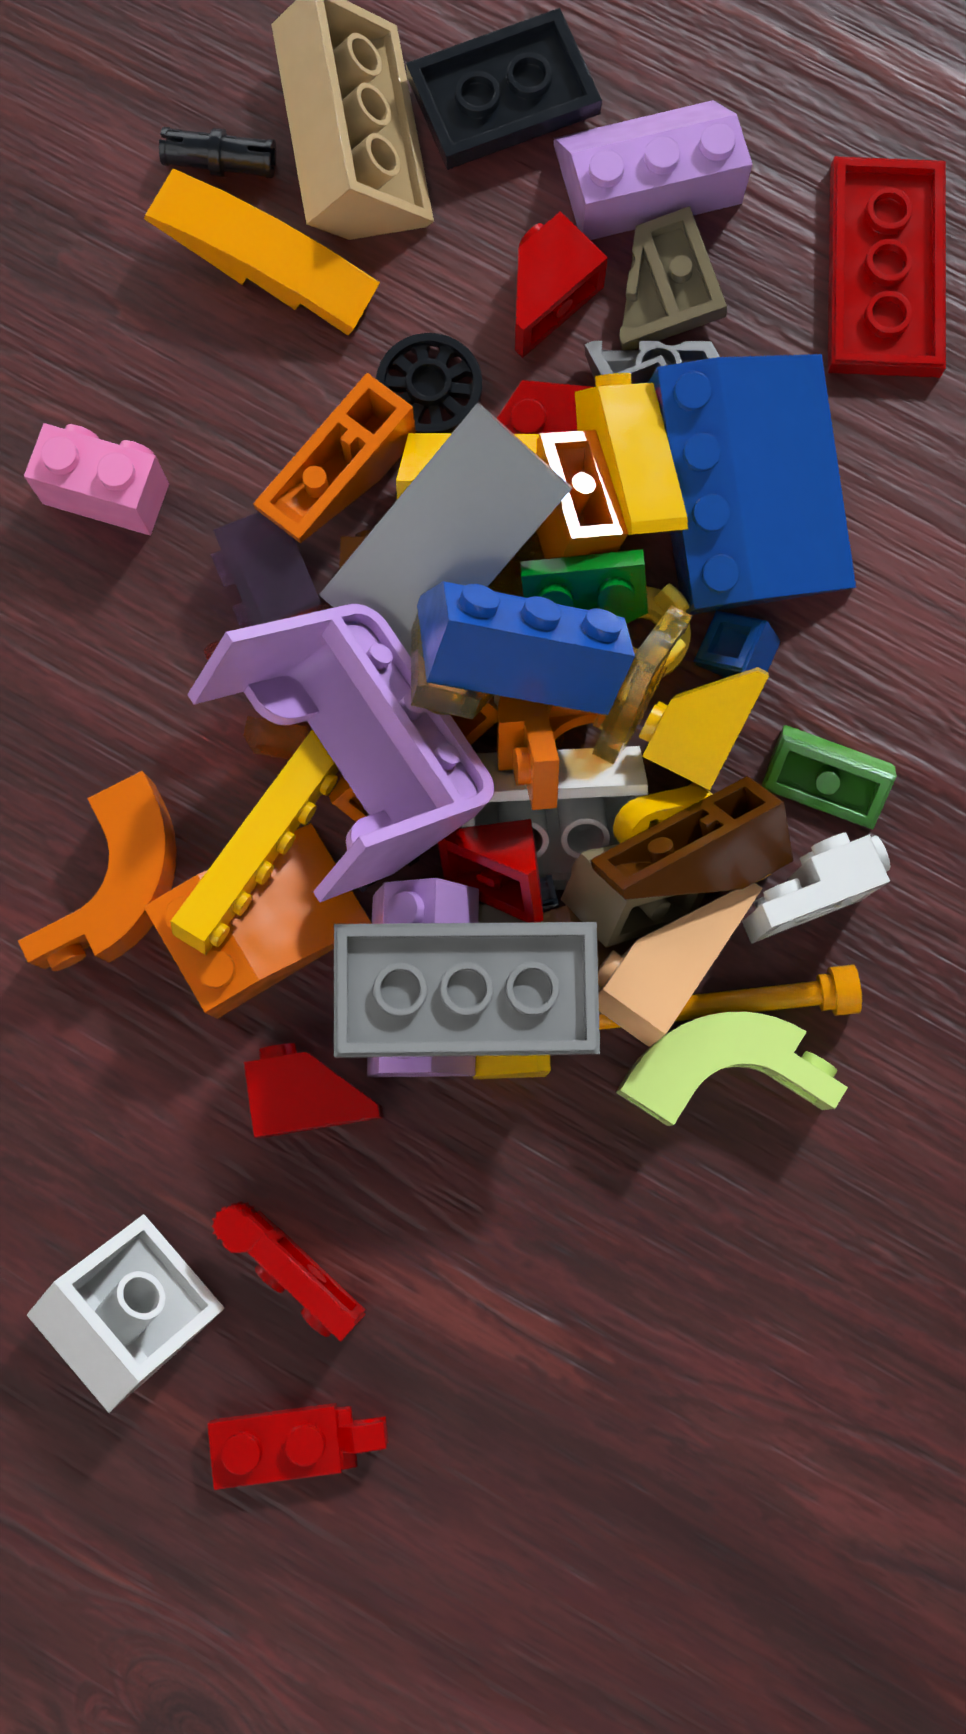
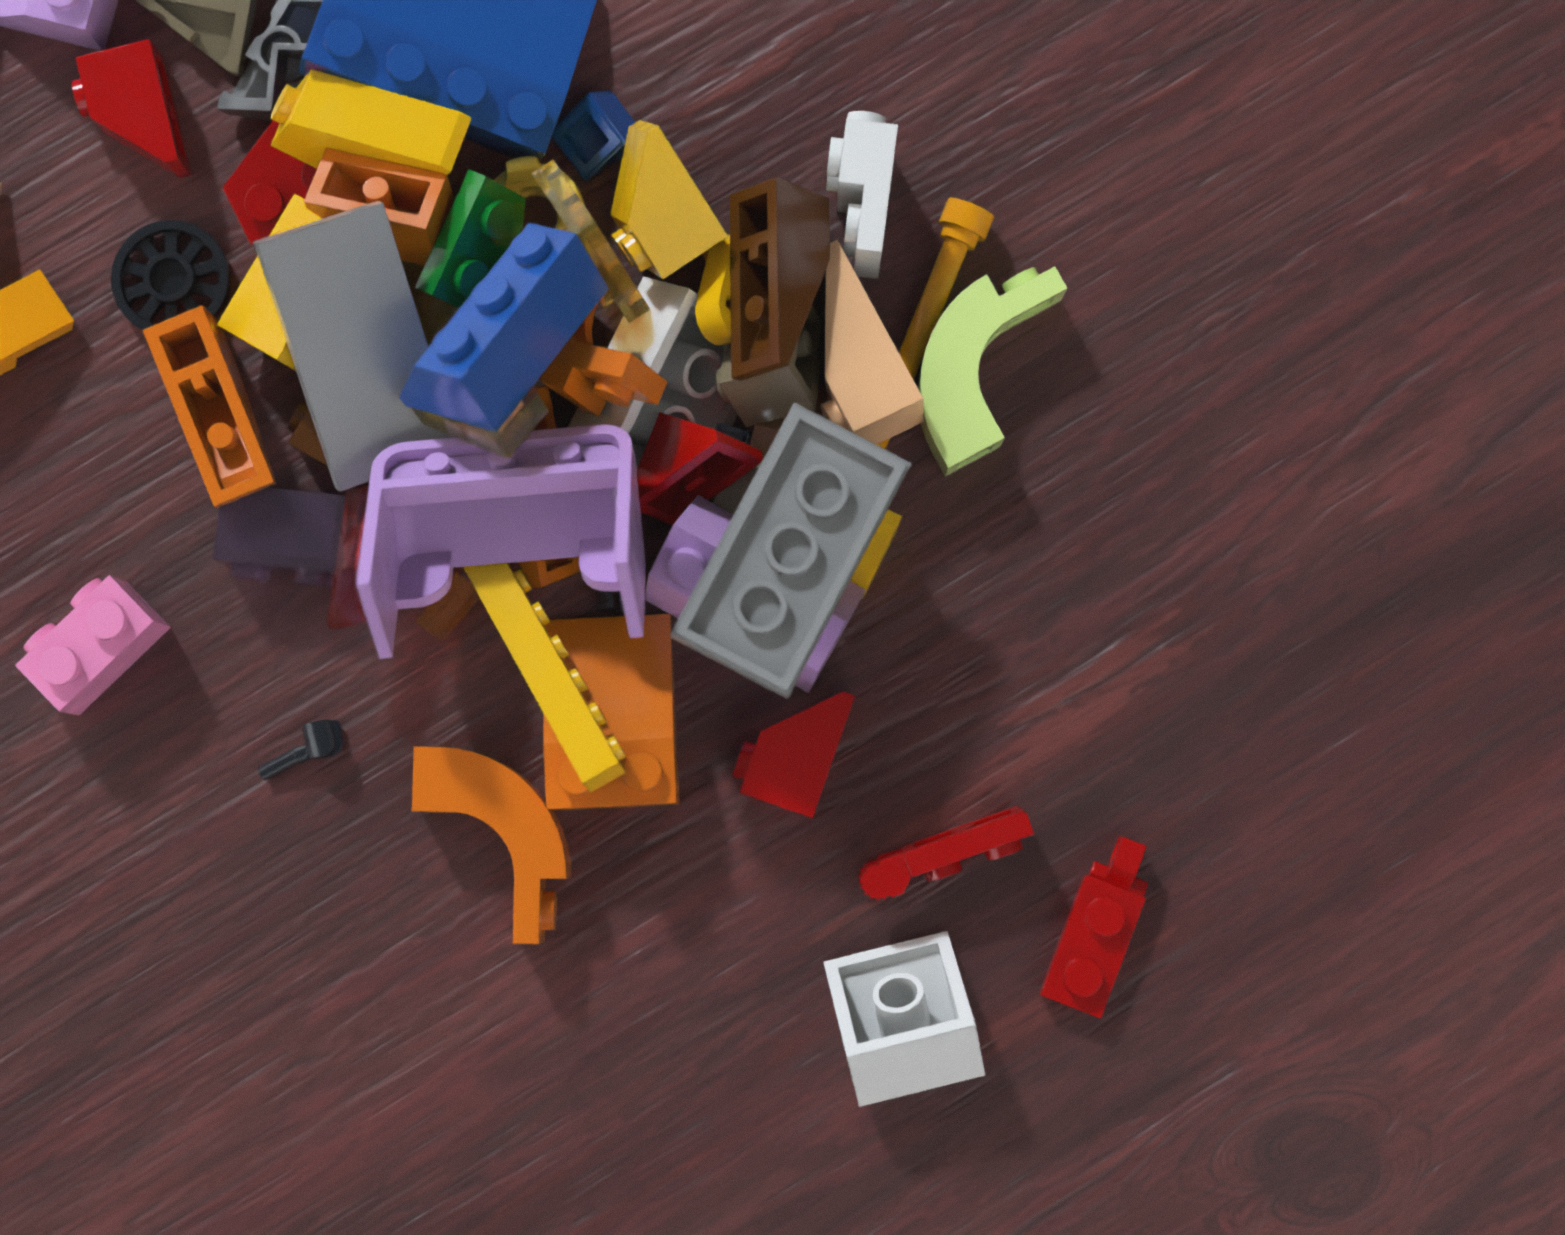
camera: 60 degrees left, 5 degrees up
(115, 698) = (321, 739): none -> black hand
(829, 777) = (763, 120): bright green slope -> none

